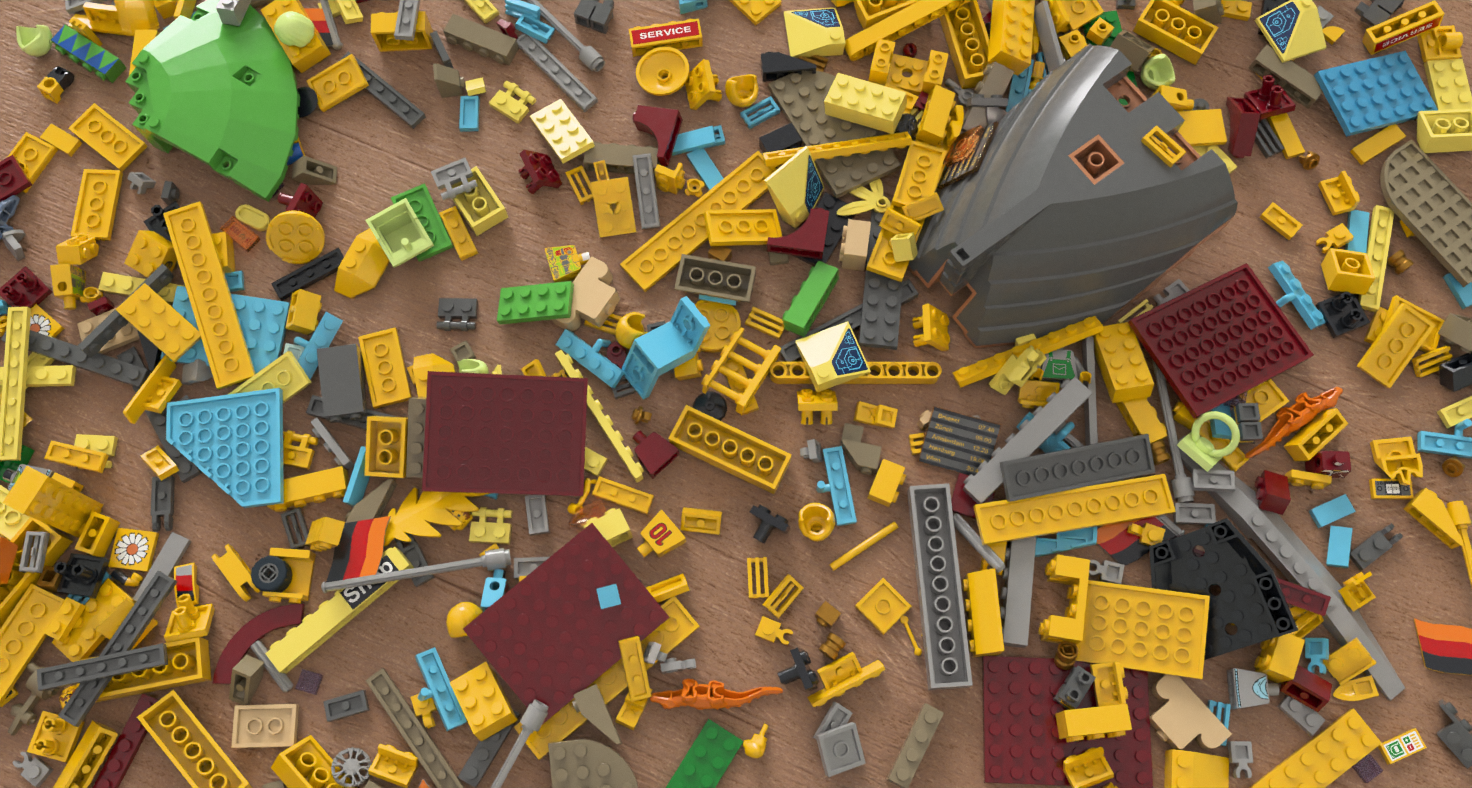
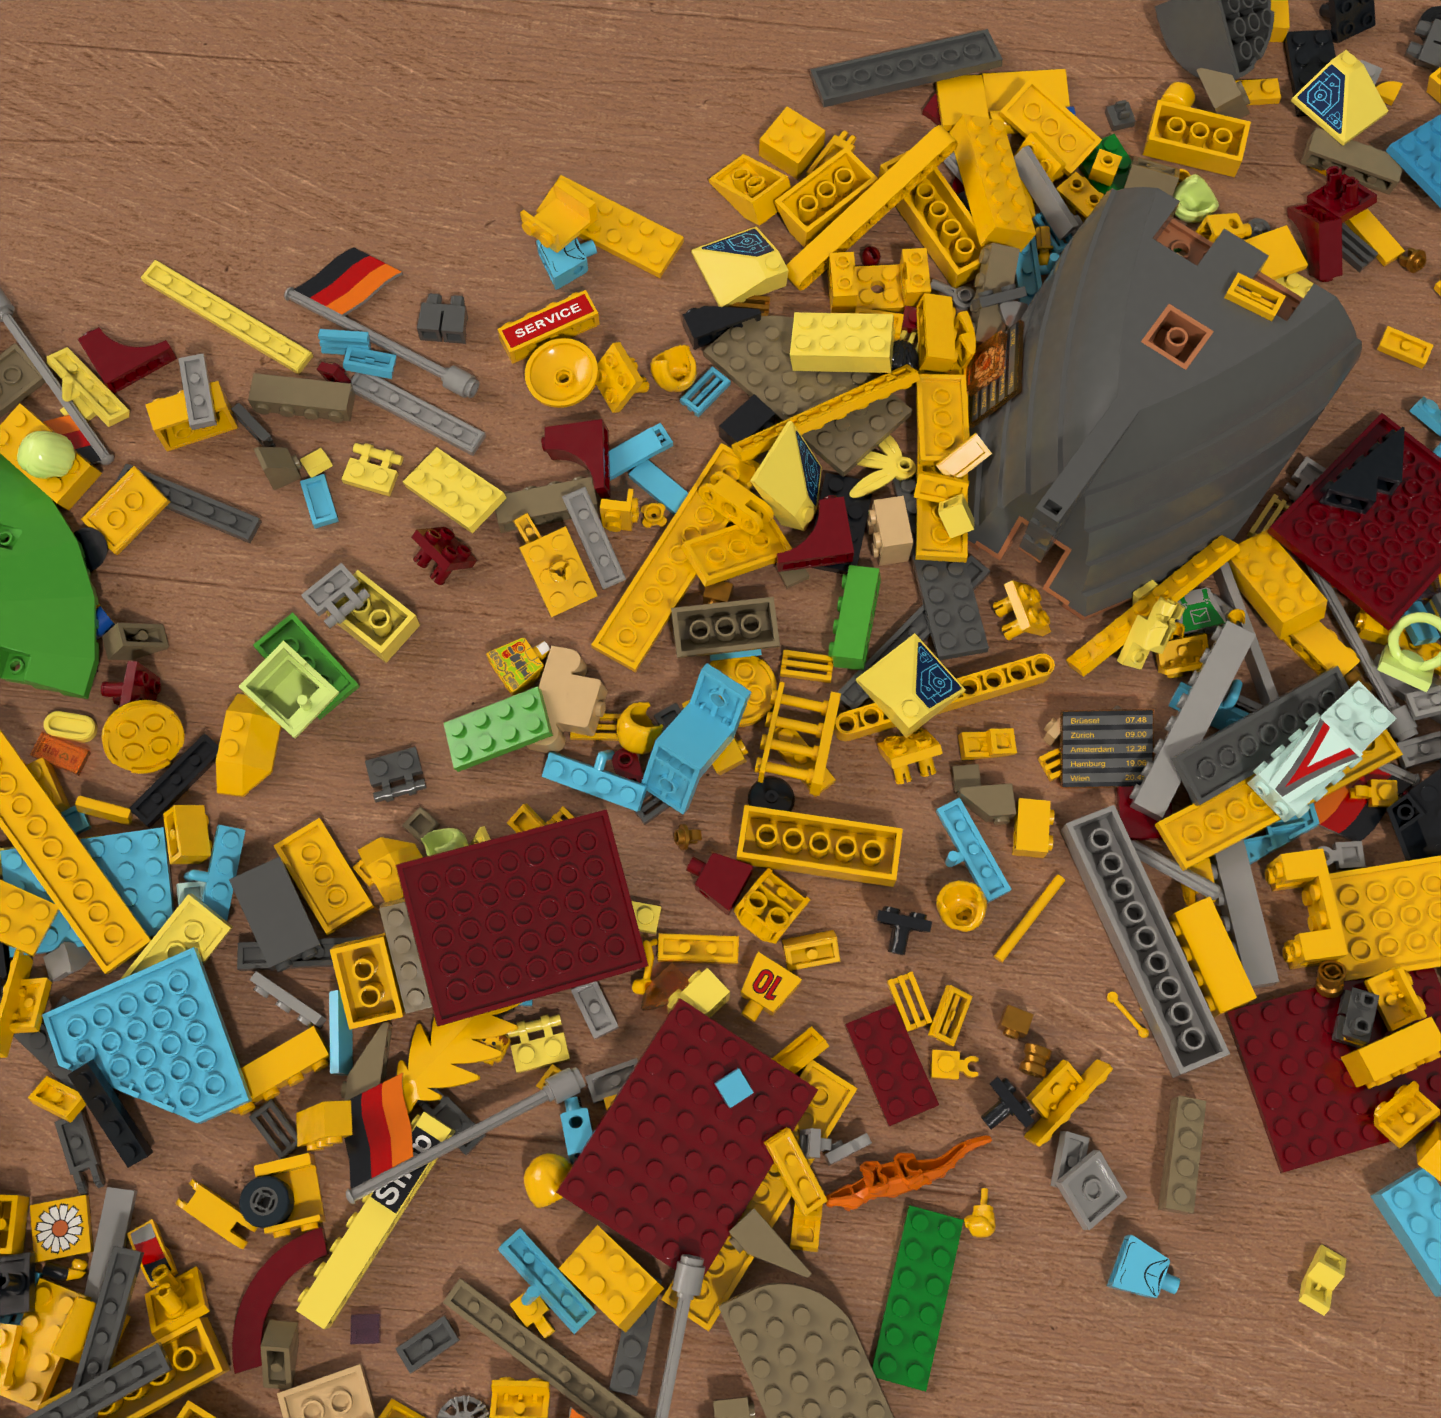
camera: 20 degrees left, 0 degrees up
(189, 482) = (110, 1113): none -> black plate
(254, 279) = (104, 810): none -> yellow tile
(280, 678) = (324, 1336): light grey axle -> none
(298, 456) = (246, 1030): yellow plate -> none
(458, 233) = (360, 666): yellow tile -> none
(574, 171) = (516, 569): yellow tile -> none
(604, 421) = (642, 859): light yellow plate -> none
(681, 481) = (770, 907): none -> yellow slope
(730, 618) = (891, 1065): none -> dark red plate
(752, 194) = (736, 503): none -> yellow piece
(812, 452) = (924, 816): light grey tile -> none
(883, 606) = (1080, 988): yellow tile -> none
(1112, 490) = (1320, 752): none -> light aqua wedge
(1221, 303) = (1377, 472): none -> black slope

